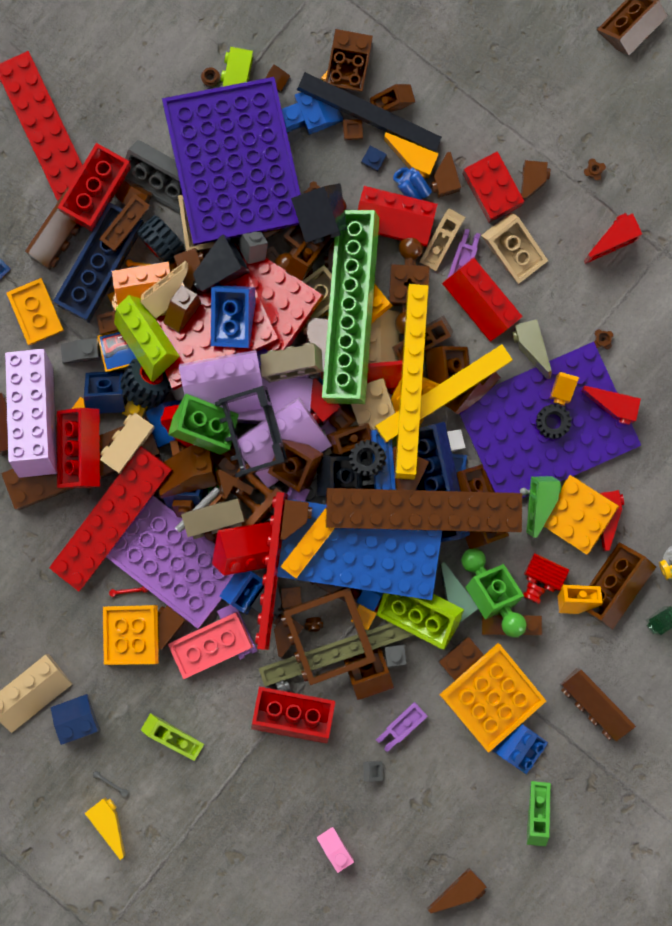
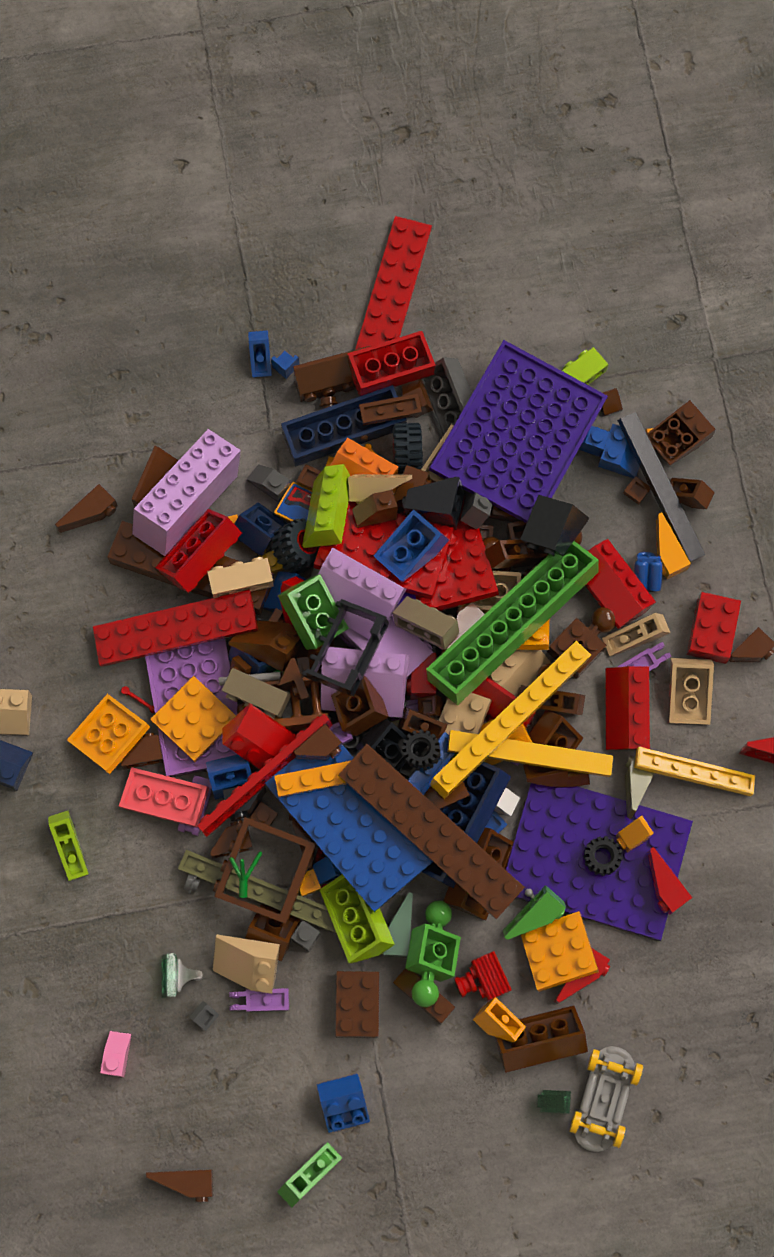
camera: 40 degrees right, 10 degrees down
(13, 251) = (284, 364): none -> blue panel
(35, 311) = (260, 422): light orange plate -> none
(71, 254) = (328, 401): none -> reddish brown plate
(182, 571) = (193, 718): none -> light orange plate
(210, 71) = (560, 354): reddish brown plate -> none
(293, 715) = (179, 911): red slope -> none
(313, 624) = (266, 852): reddish brown plate -> none
(318, 654) = (243, 878): none -> green plant
(328, 761) = (175, 975): none -> clear green piece
(371, 709) = (247, 962): none -> tan slope
(373, 158) = (634, 527): dark blue plate -> none
(446, 178) = (680, 589): reddish brown slope -> none
(493, 697) = (355, 1038): light orange plate -> none
(566, 305) = (694, 771): none -> yellow tile
(597, 705) = (437, 1123): reddish brown slope -> none
(603, 334) = (708, 826): reddish brown plate -> none

